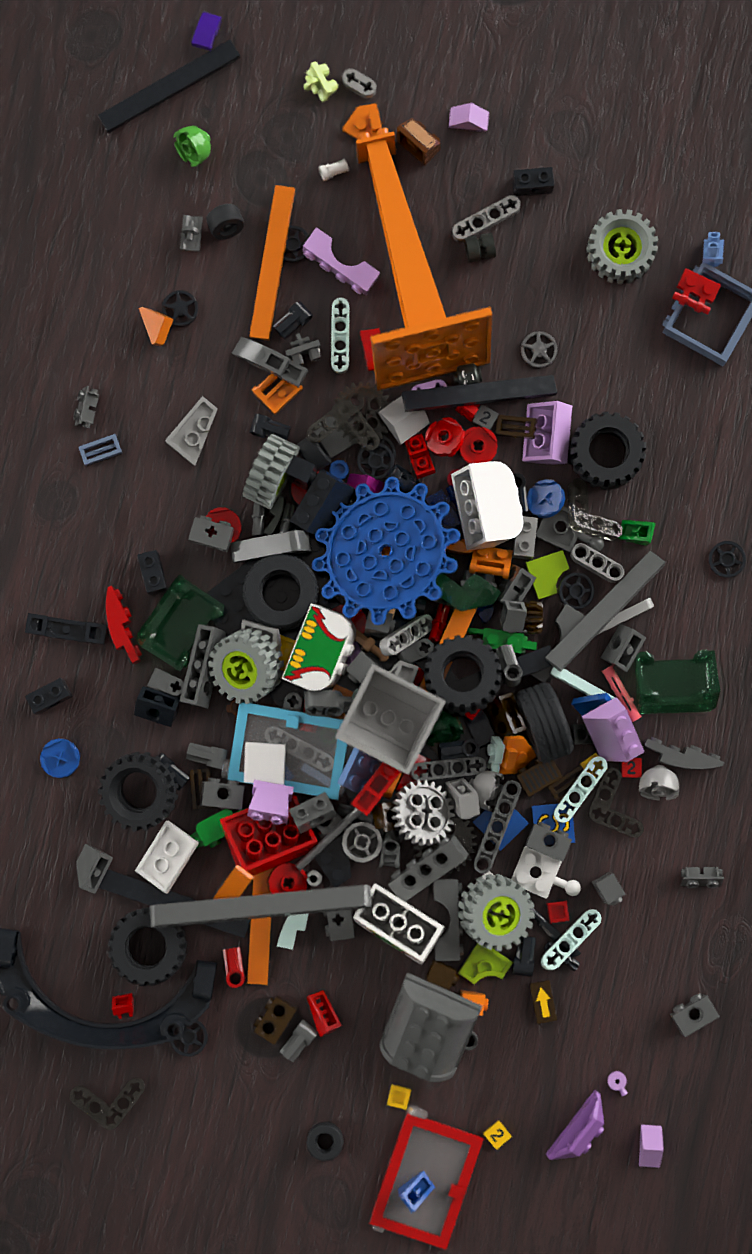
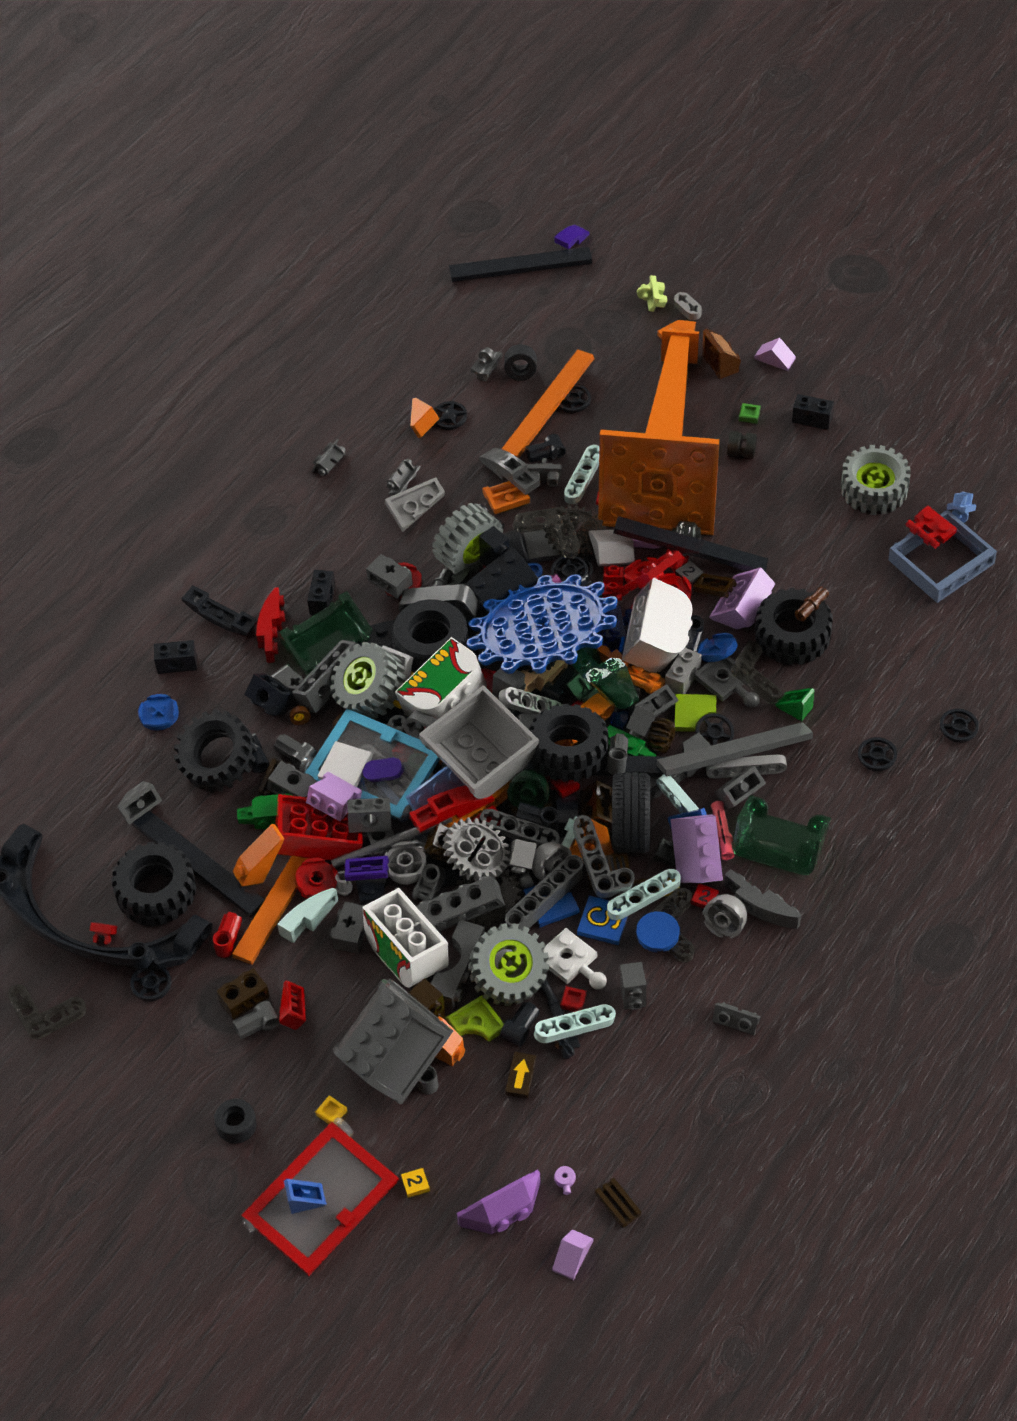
camera: 25 degrees right, 30 degrees down
(102, 457) = (324, 493): sand blue tile -> none
(166, 856) = (212, 817): white tile -> none
(169, 412) = (399, 483): none -> dark grey hinge
(193, 144) = (520, 303): bright green cylinder -> none
(193, 715) = (299, 715): none -> reddish brown tile
(260, 906) = (279, 867): dark grey beam -> none
(303, 758) = (383, 769): none -> dark purple tile
(333, 169) = (635, 356): white pin -> none
(348, 859) = (366, 871): none -> dark purple tile
(360, 276) = (594, 403): lavender arch -> none
(470, 201) = (749, 413): none -> bright green tile
(474, 456) = (649, 572): none -> red wing
(484, 215) = (757, 426): light grey beam -> none
(531, 778) = (597, 856): none -> dark grey beam
(536, 841) = (594, 936): dark grey brick -> none
(539, 349) = (764, 537): flat silver wheel -> none
(591, 554) = (737, 705): light grey beam -> none
(607, 823) = (658, 931): none -> blue tile
(622, 431) = (811, 603): none -> reddish brown pin
(683, 1095) = (606, 1187): none -> dark brown tile
(706, 1014) = (665, 1148): dark grey brick -> none

